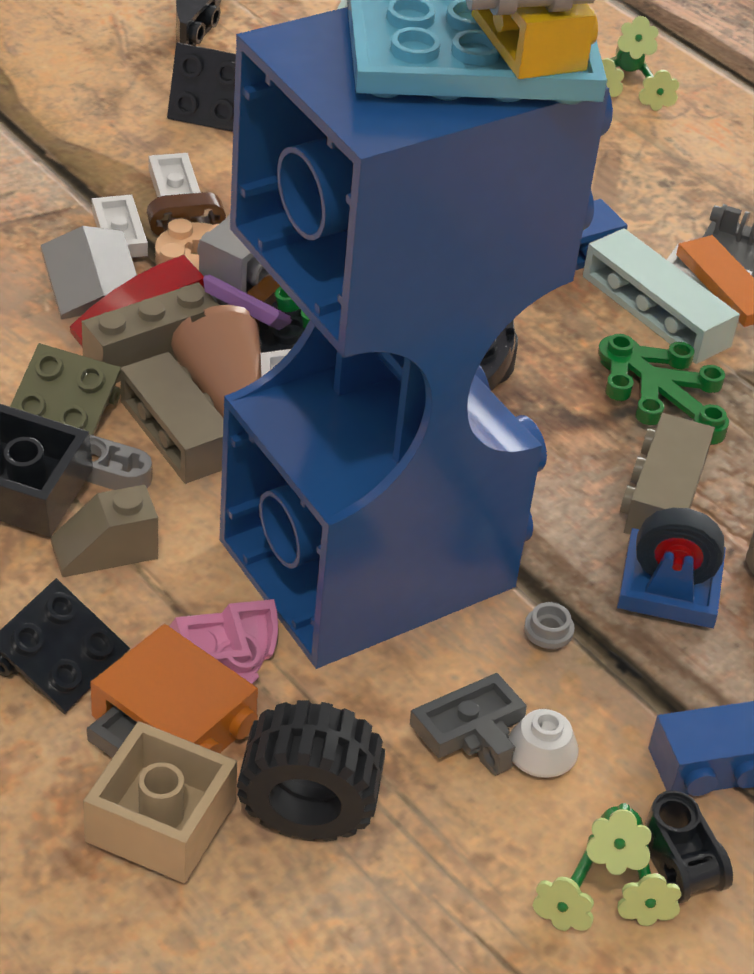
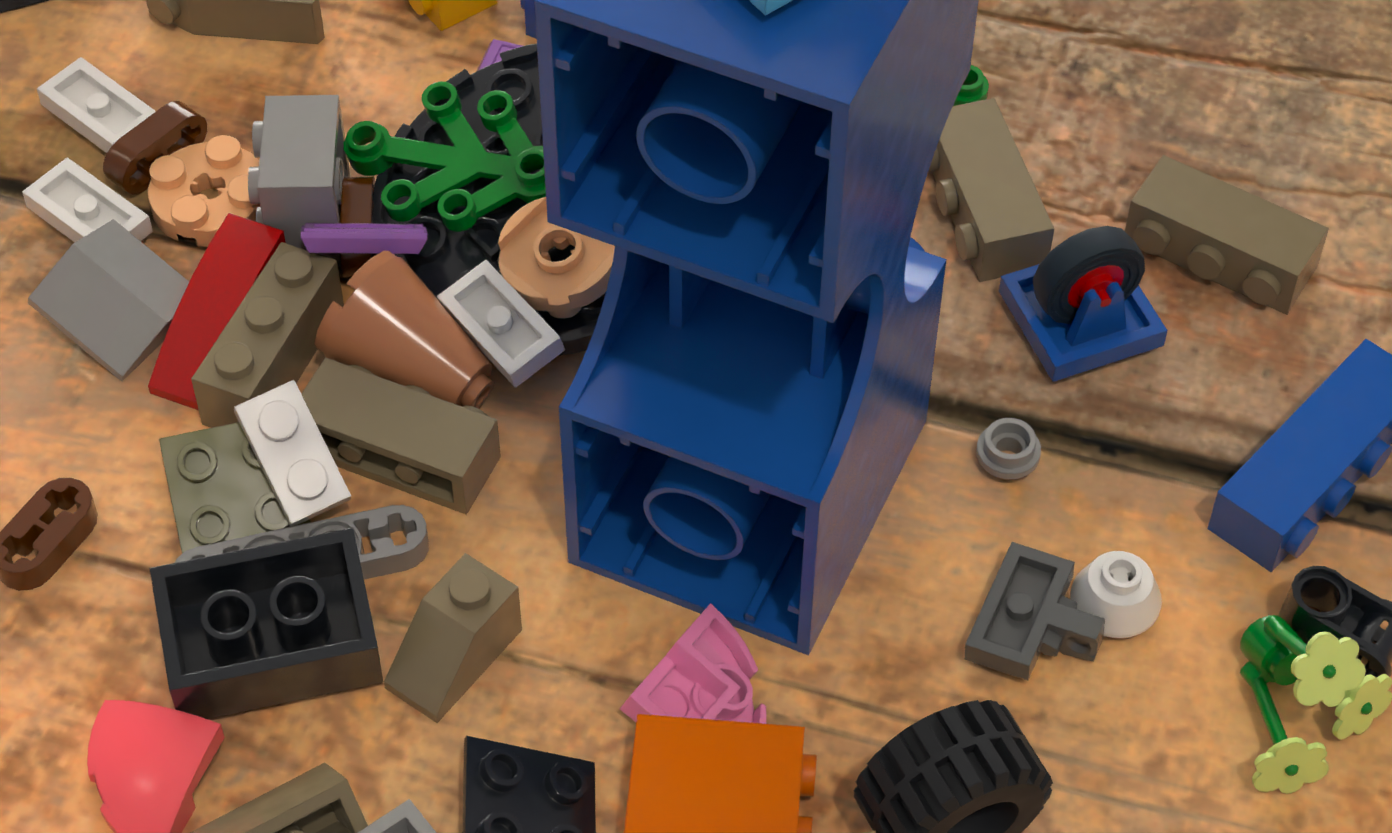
camera: 30 degrees left, 10 degrees up
(102, 387) = (292, 453): none -> white plate

